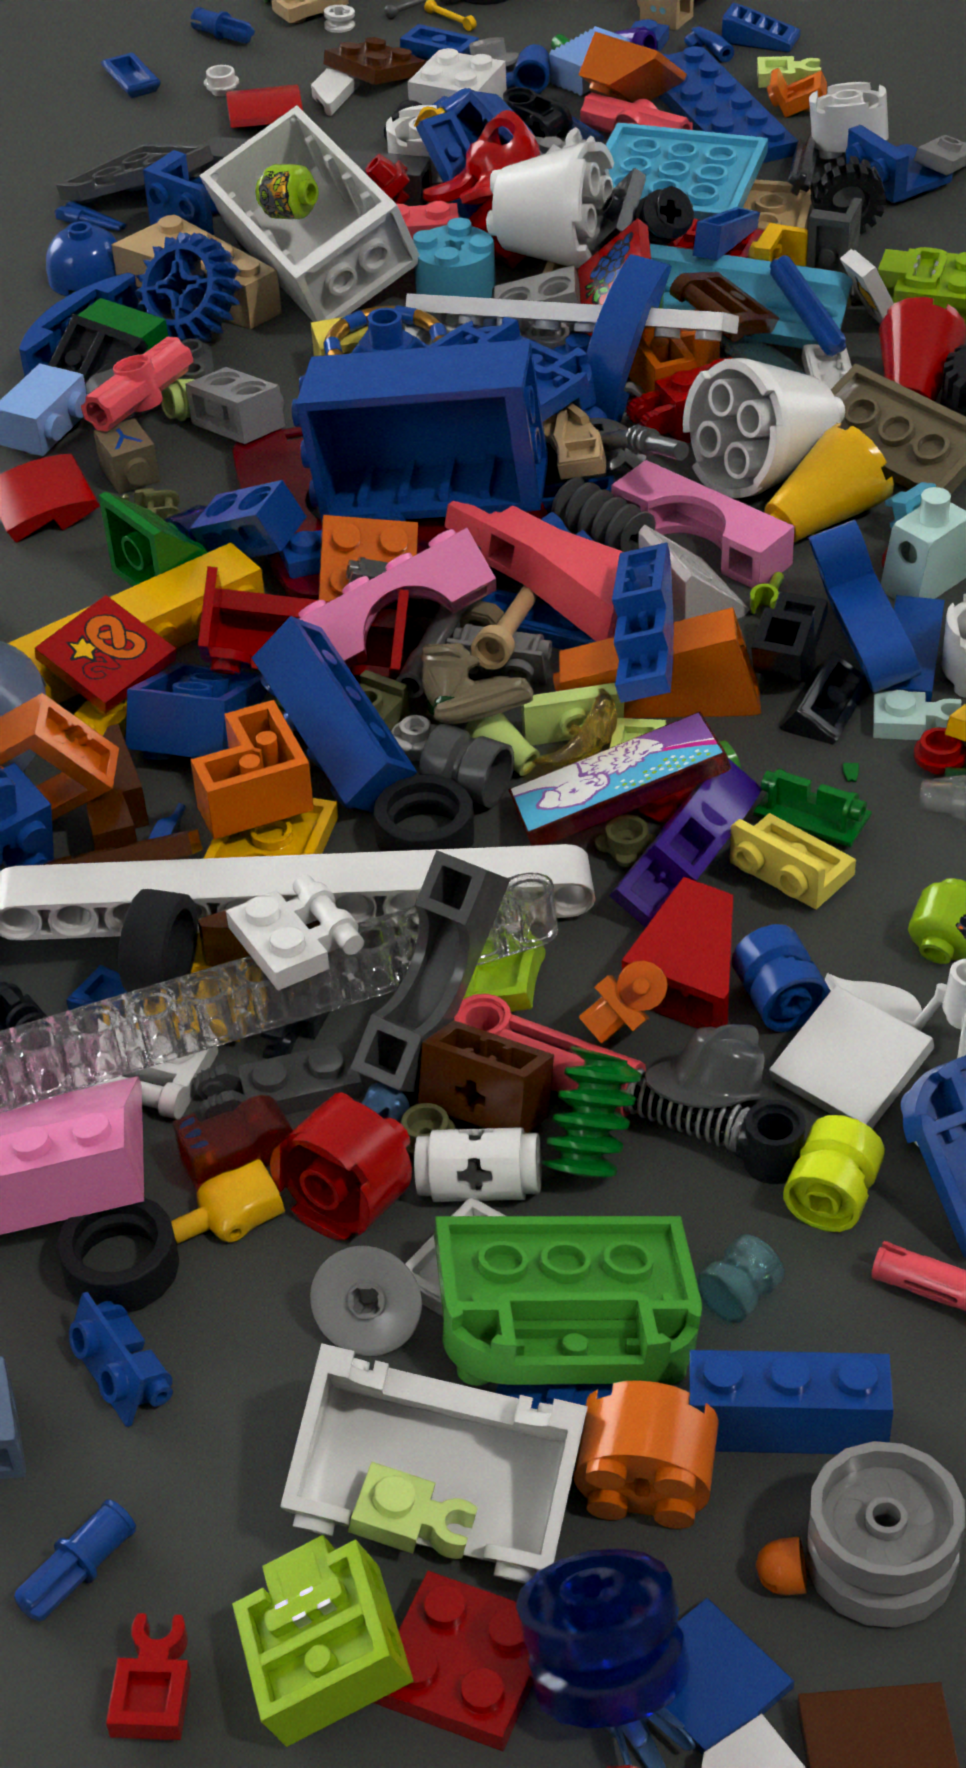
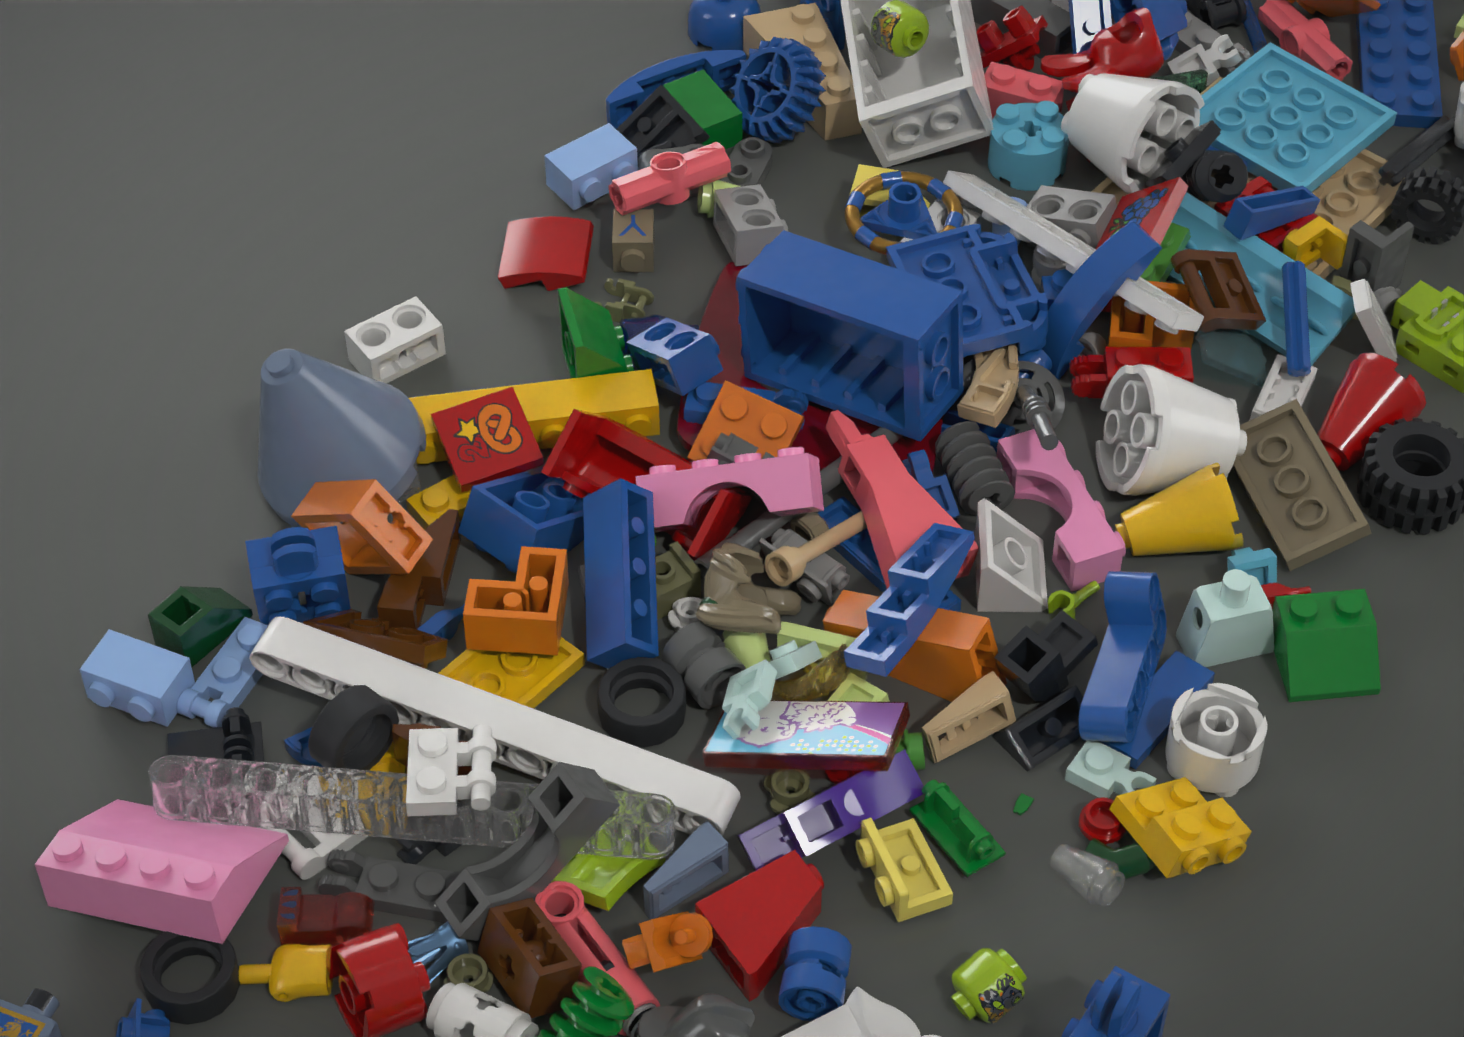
camera: 25 degrees right, 5 degrees up
(537, 767) = (746, 695): none -> light aqua plate
(550, 726) = (792, 658): none -> light aqua plate
(585, 942) = (687, 871): none -> sand blue slope
(760, 709) = (970, 718): none -> tan slope

